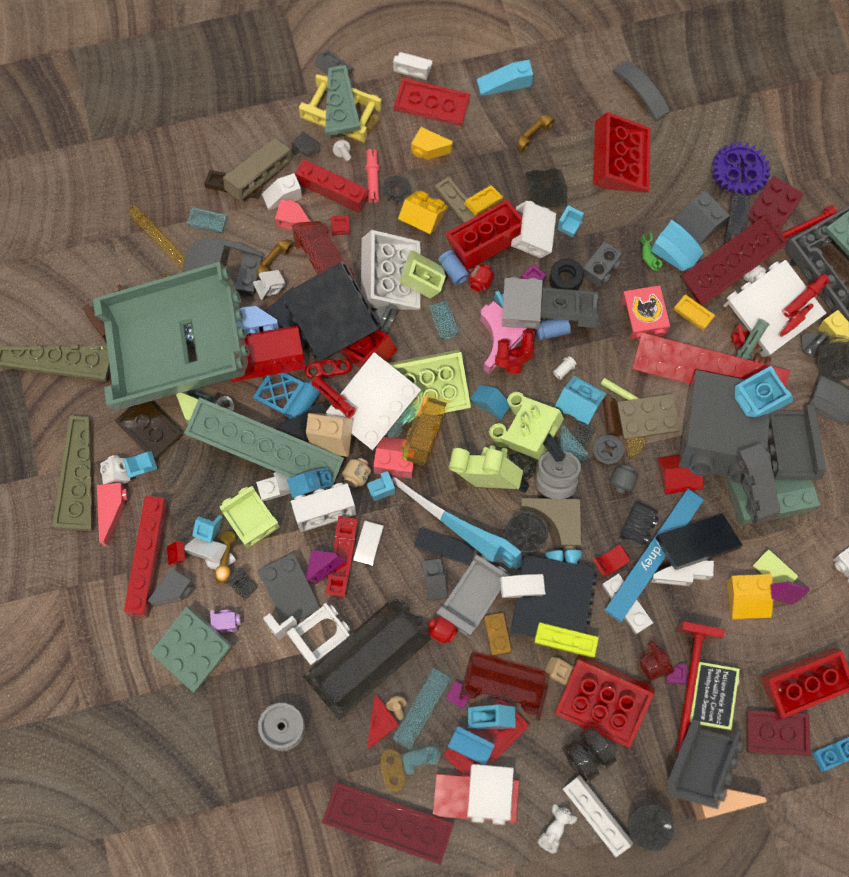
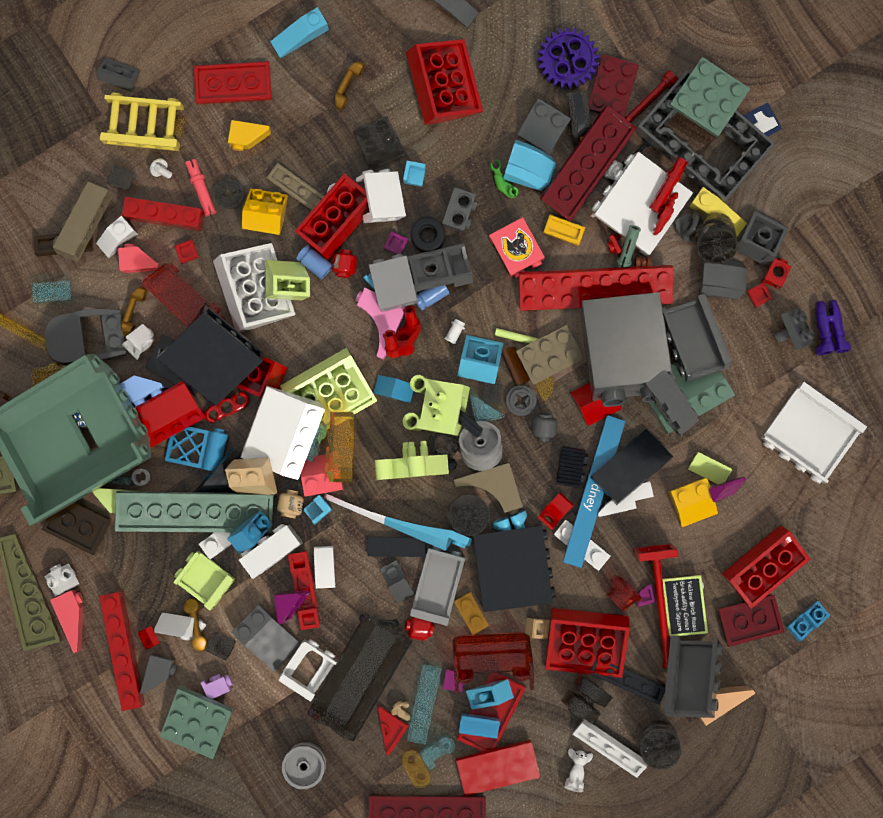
camera: 15 degrees left, 15 degrees up
(140, 464) = (82, 565): medium azure panel -> none
(207, 529) = (169, 607): medium azure panel -> none
(280, 631) = (267, 679): white panel -> none
(338, 401) = (249, 446): red pin -> none
(341, 108) = (143, 128): sand green wing -> none
(385, 316) = (263, 337): dark grey piece -> none
(412, 65) = (199, 46): white panel -> none
(444, 320) = (322, 319): clear light blue plate -> none
(483, 200) = (320, 178): yellow plate -> none
(490, 794) = (509, 762): white panel -> none
(522, 586) = (480, 567): white slope -> none
(566, 640) = (536, 603): neon yellow tile -> none
(640, 758) = (634, 683): none -> black tile
(762, 393) = (652, 310): medium azure slope -> none

